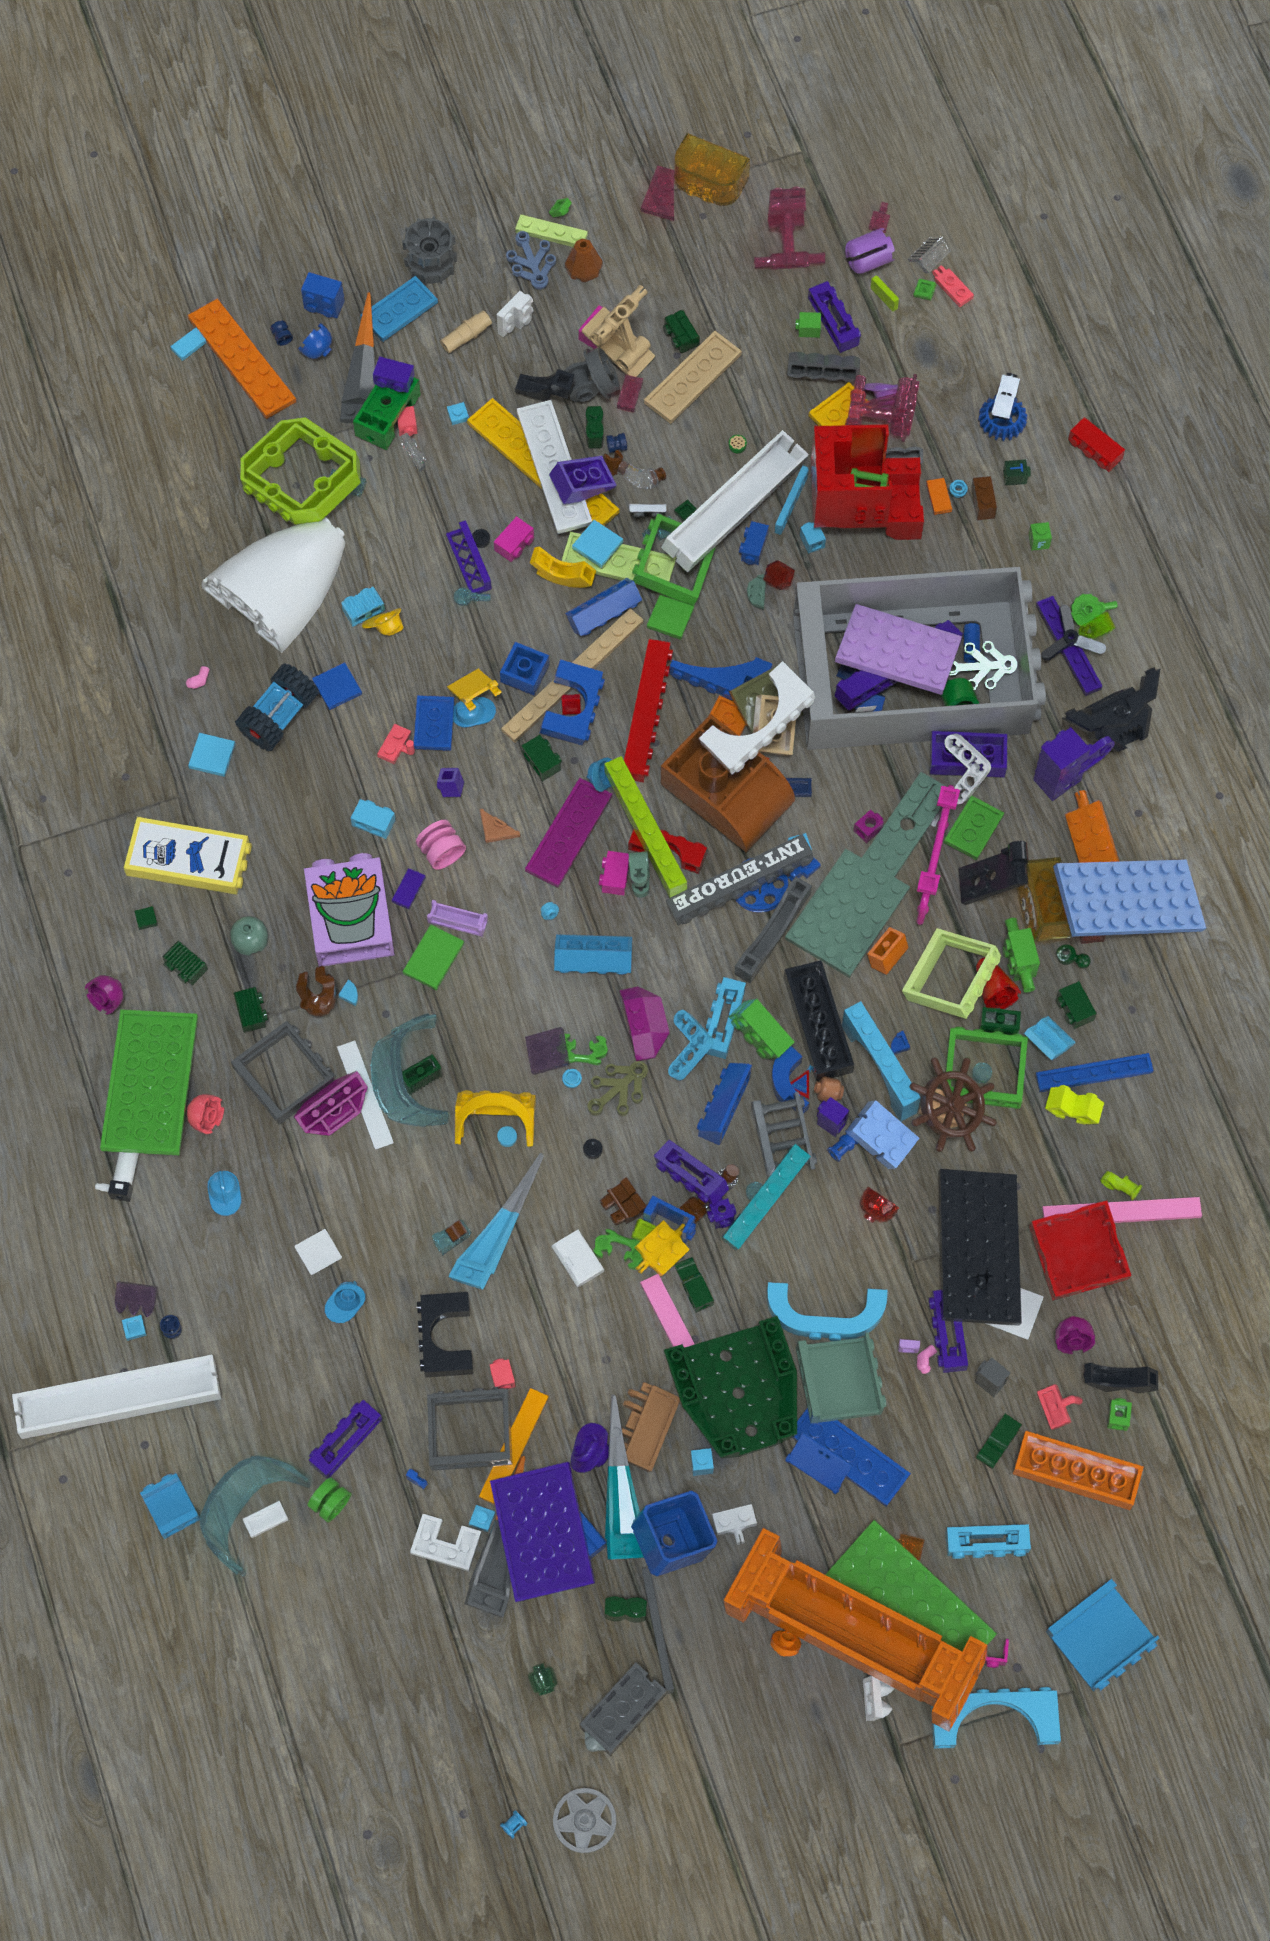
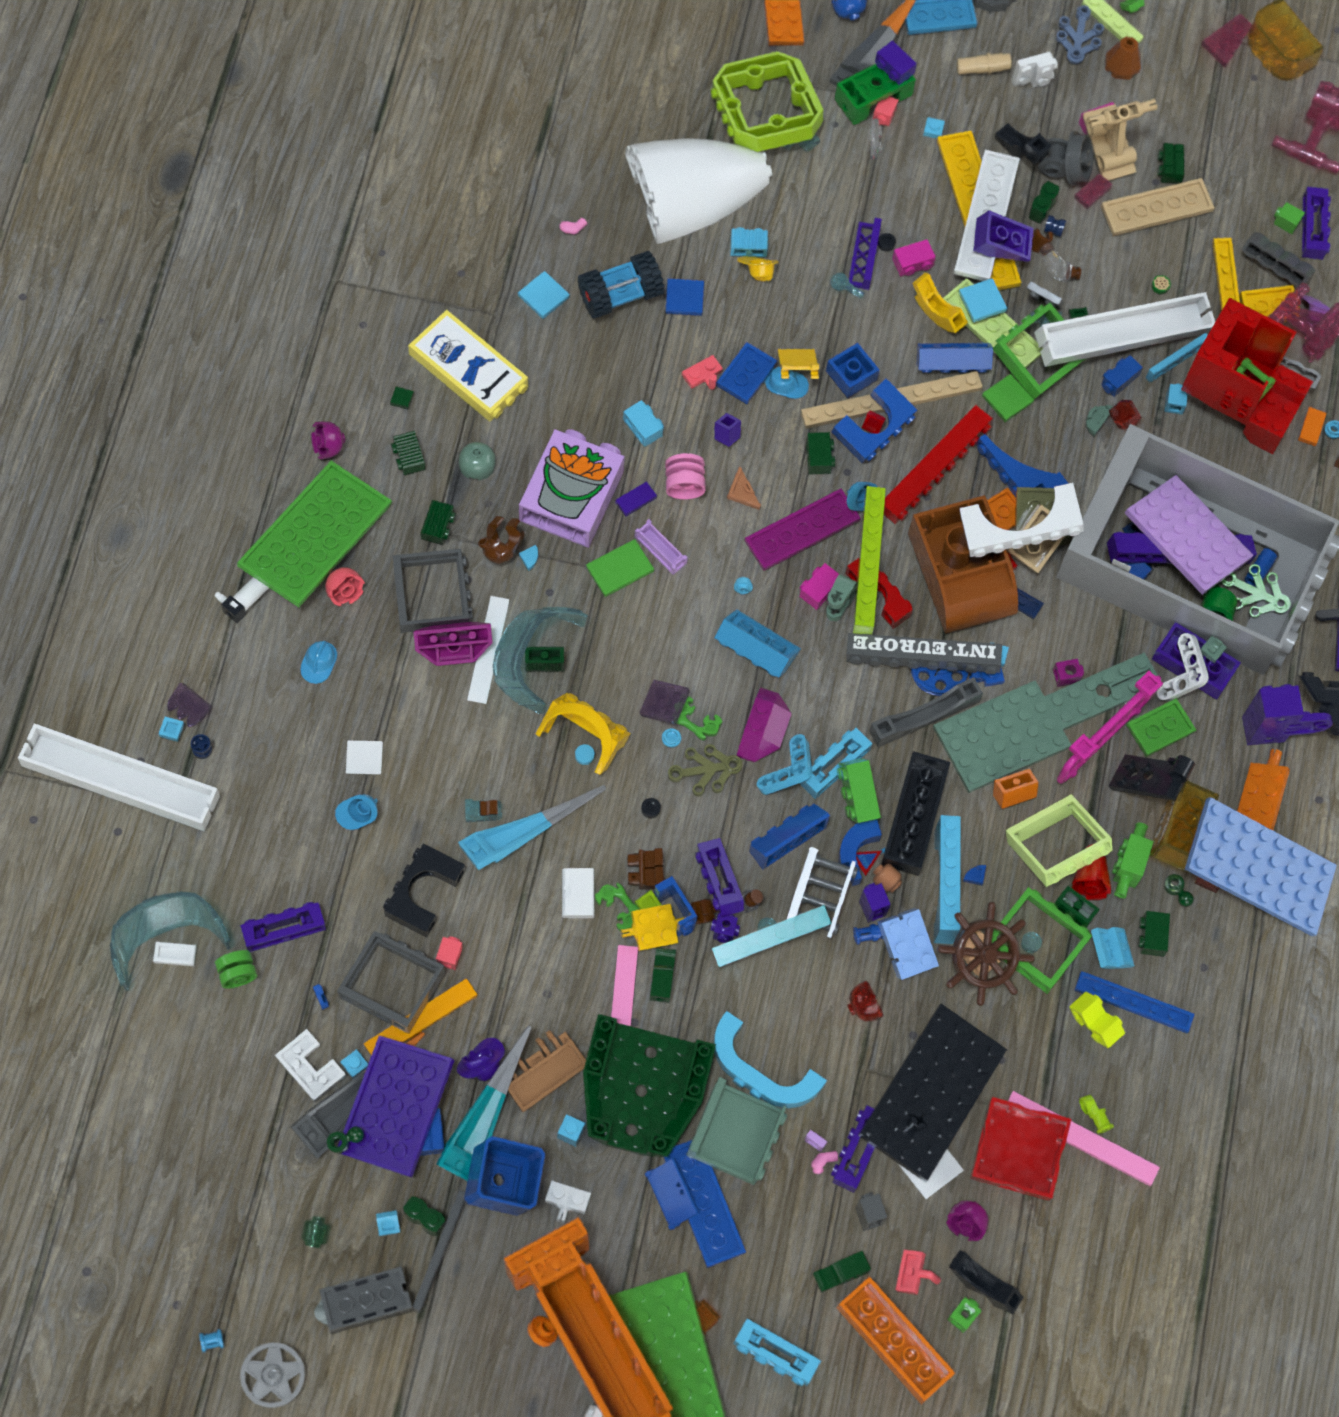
camera: 25 degrees right, 0 degrees up
(169, 1505) = (104, 894): dark azure panel -> none
(524, 1577) = (354, 1135): none -> dark green plate
(598, 1634) = (387, 1223): none -> medium azure plate
(788, 406) = (1225, 270): none -> yellow plate
(978, 735) = (1213, 649): none -> sand green tile

